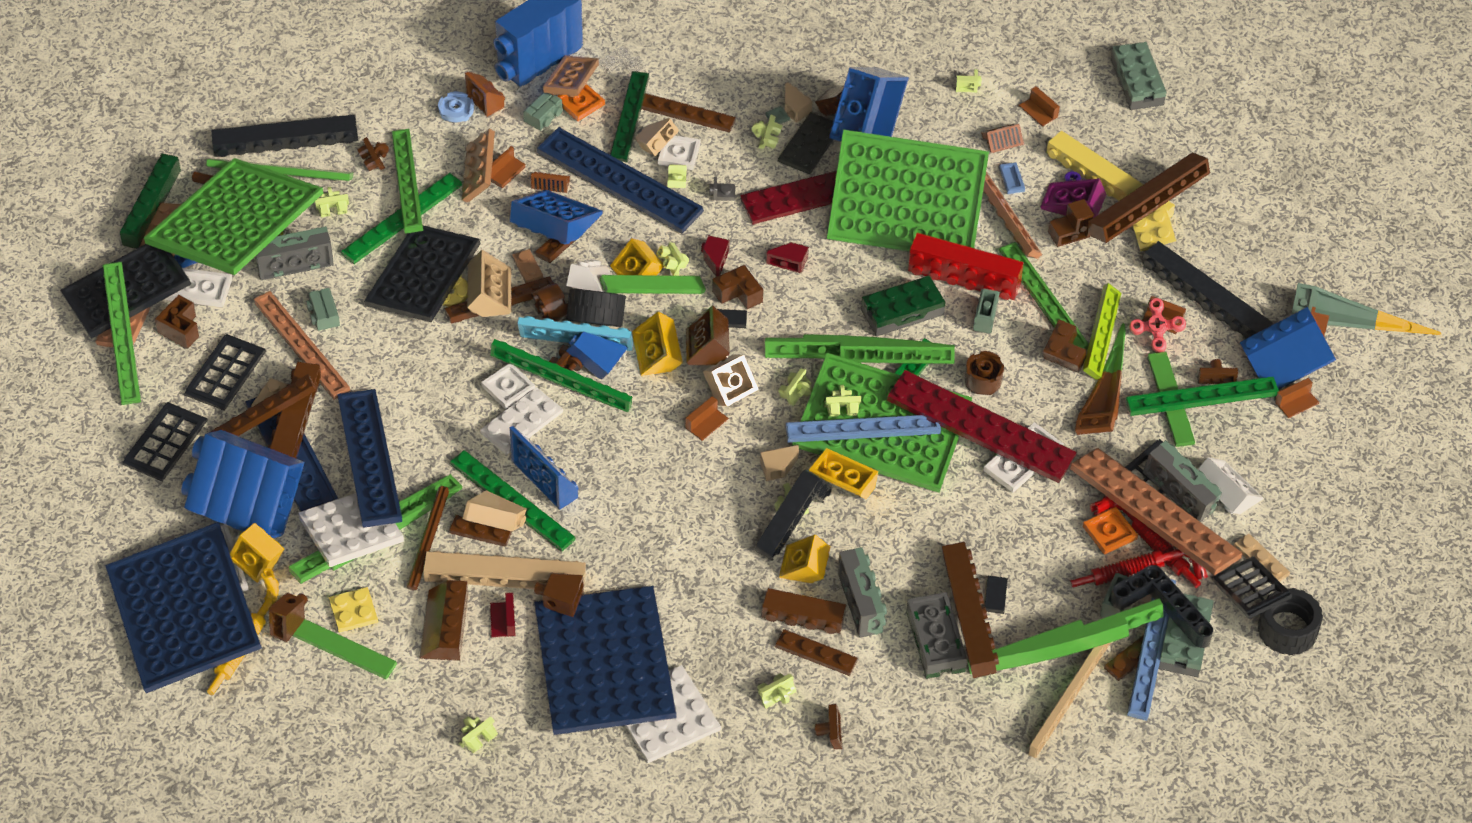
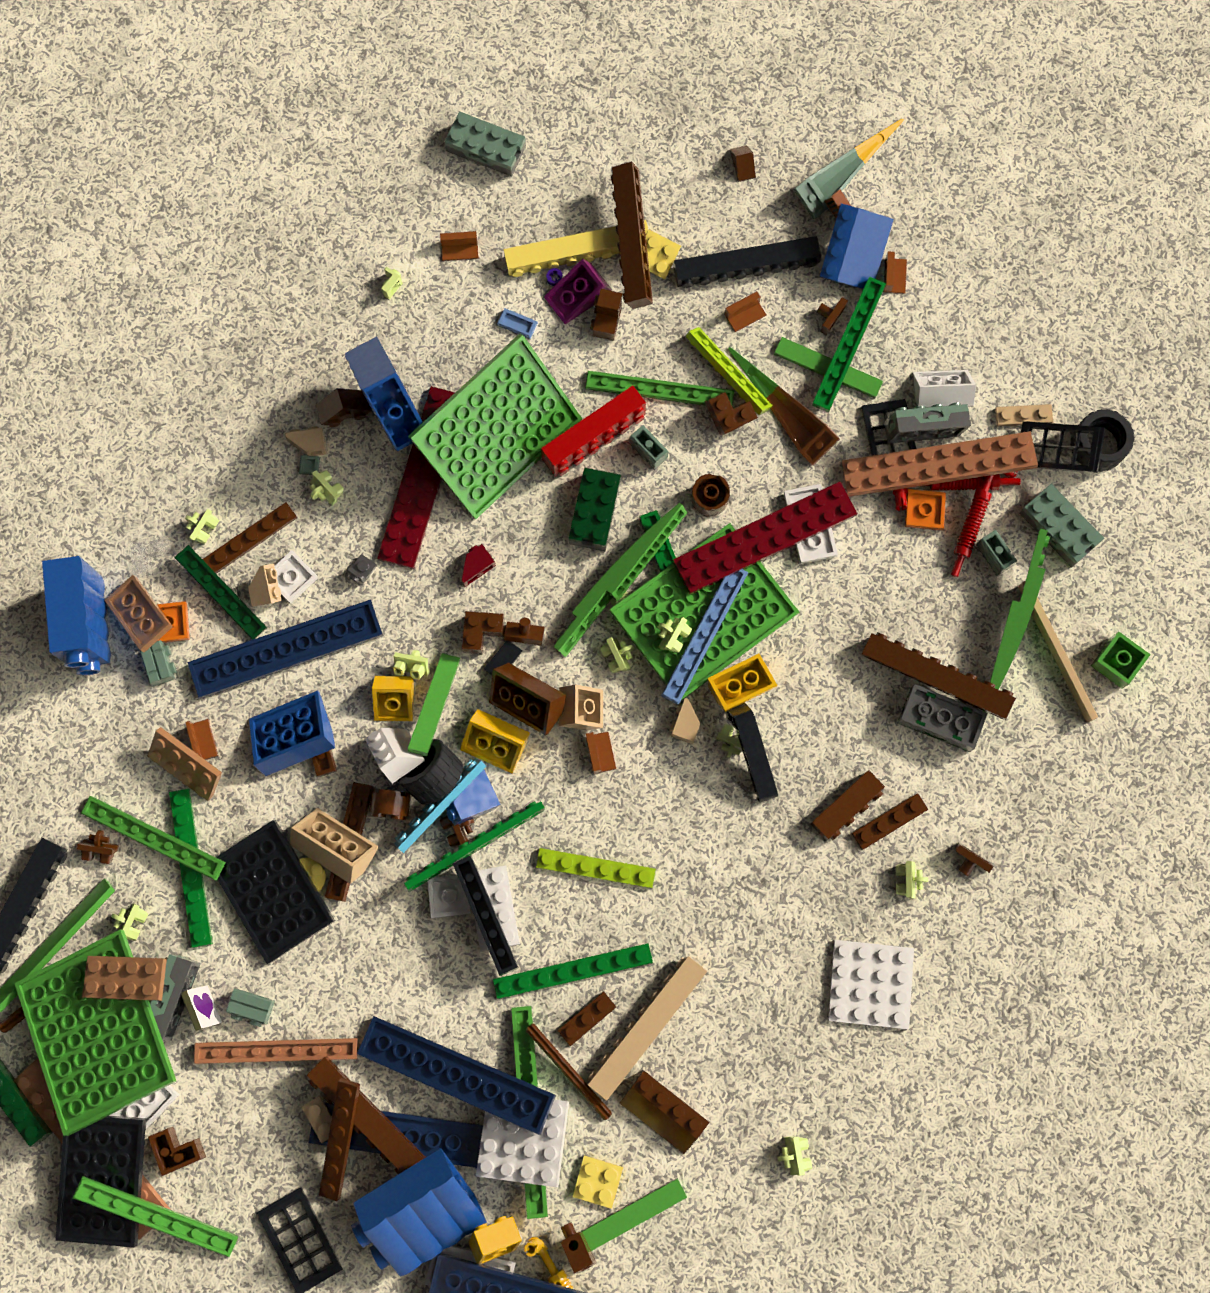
camera: 55 degrees left, 25 degrees up
(208, 398) = (239, 1104): black piece -> none
(288, 206) = (124, 978): none -> medium nougat plate
(300, 276) = (201, 1008): none -> tile
(451, 114) = (105, 737): light blue plate -> none
(484, 93) = (100, 702): dark orange slope -> none
(494, 512) = (583, 997): tan slope -> none
(503, 617) = (690, 1058): dark red panel -> none
(510, 407) = (485, 915): none -> black brick
(527, 266) = (326, 792): medium nougat plate -> none
(542, 470) = (567, 927): blue slope -> none
(550, 182) = (243, 710): dark orange panel -> none
(561, 592) = (707, 998): reddish brown torso -> none
(605, 662) = (791, 1002): dark blue plate -> none
(609, 470) = (595, 868): none -> lime plate
(671, 74) = (207, 519): none -> yellowish green hips
(677, 176) = (320, 599): yellowish green bracket -> none
(715, 253) = (429, 624): dark red slope -> none
(760, 316) = (524, 632): none -> reddish brown tile
(805, 560) = (798, 770): yellow slope -> none
(808, 144) = (360, 459): pearl dark grey plate -> none
(861, 592) = (866, 749): dark grey piece -> none
(996, 594) = (925, 640): black tile -> none
(1003, 137) = (469, 298): panel -> none
(1012, 223) = (546, 354): nougat plate -> none
(1104, 741) = (1120, 660): none -> bright green brick
(1125, 661) = (1051, 582): reddish brown plate -> none
(1148, 667) = (1059, 562): medium blue tile -> none
(1150, 325) = (762, 324): coral gear -> none
(1155, 582) = (1040, 522): black beam -> none
(1290, 246) = (743, 162): none -> reddish brown slope

